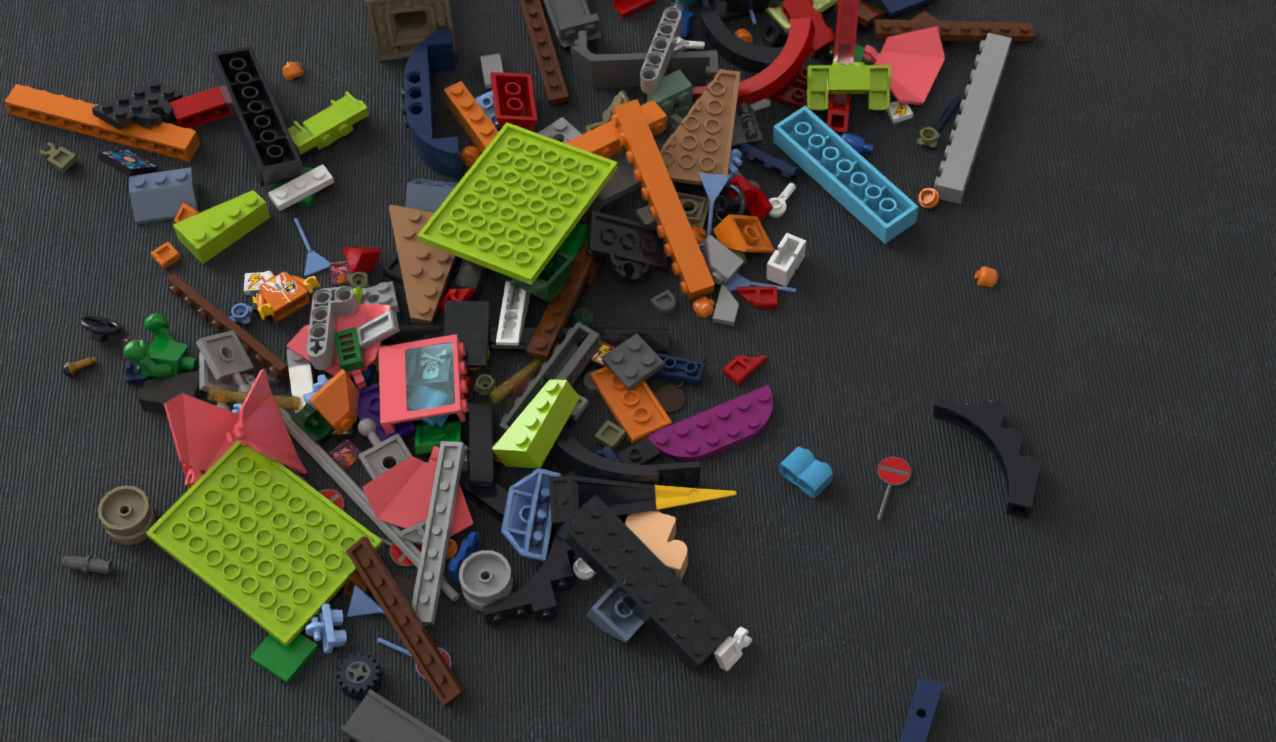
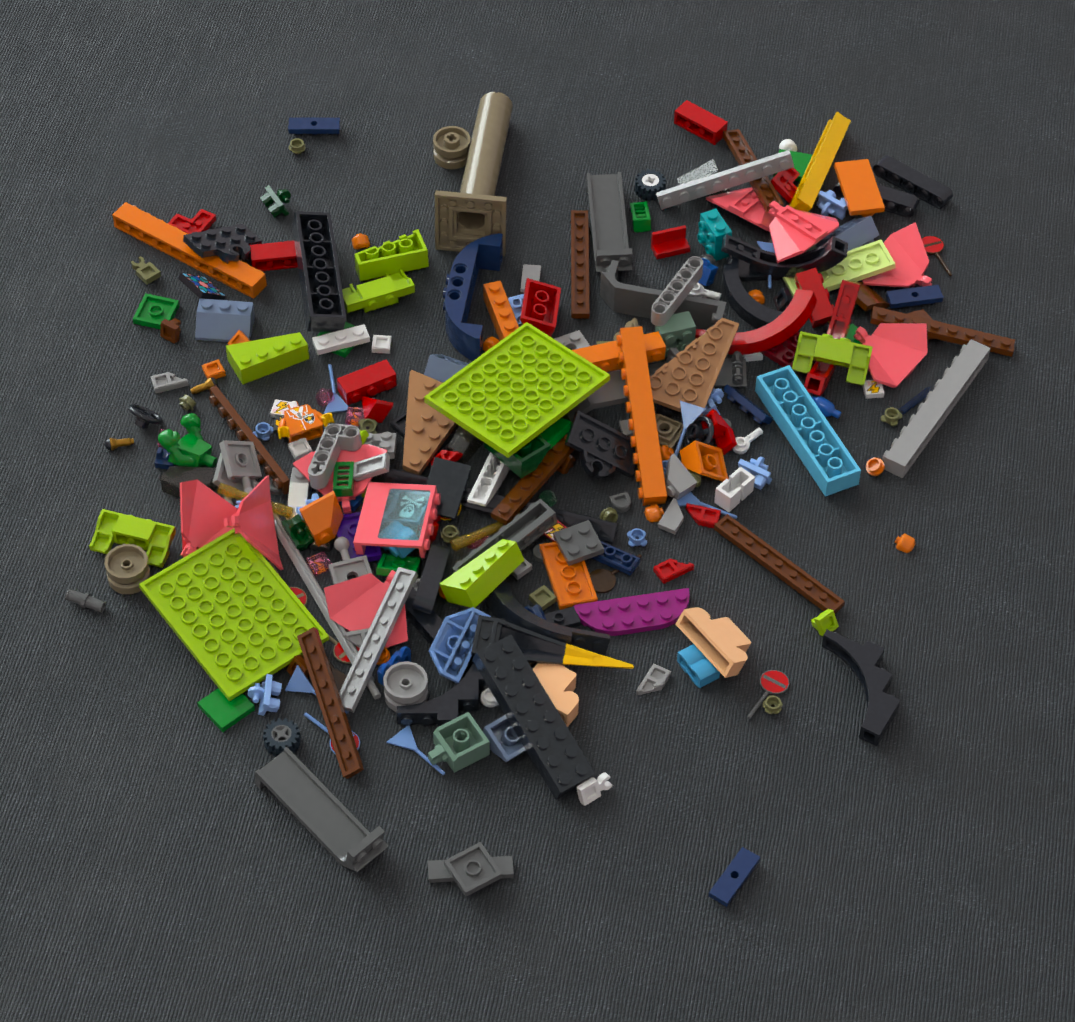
camera: 10 degrees right, 5 degrees down
(82, 202) = (154, 310): none -> green tile
(105, 90) = (199, 223): none -> red plate
(105, 220) = (170, 330): none -> reddish brown tile
(116, 281) = (167, 381): none -> light grey tile
(121, 469) = (128, 529): none -> lime bracket
(145, 300) = (187, 403): none -> olive plate
(166, 271) = (210, 382): none -> pearl gold piece
(190, 52) = (282, 197): none -> dark green hips
(288, 324) = (299, 448): none -> white tile
(300, 257) = (324, 396): none -> clear pink piece
(343, 230) = (366, 382): none -> red brick
(346, 73) = (405, 254): none -> lime wedge
(347, 182) = (381, 344): none -> white tile
(502, 642) = (406, 740): none -> medium blue piece
(566, 633) = (459, 743): none -> sand green hinge
(656, 320) = (609, 514): none -> olive plate
(691, 335) = (636, 533): none -> medium blue plate
(761, 502) = (654, 680): none -> light grey tile
(803, 230) = (757, 469): none -> light blue hips
(820, 439) = (716, 639): none -> light nougat brick
(860, 335) = (778, 564): none -> reddish brown plate
(904, 494) = (772, 701): none -> olive plate
(929, 389) = (825, 621): none -> lime tile

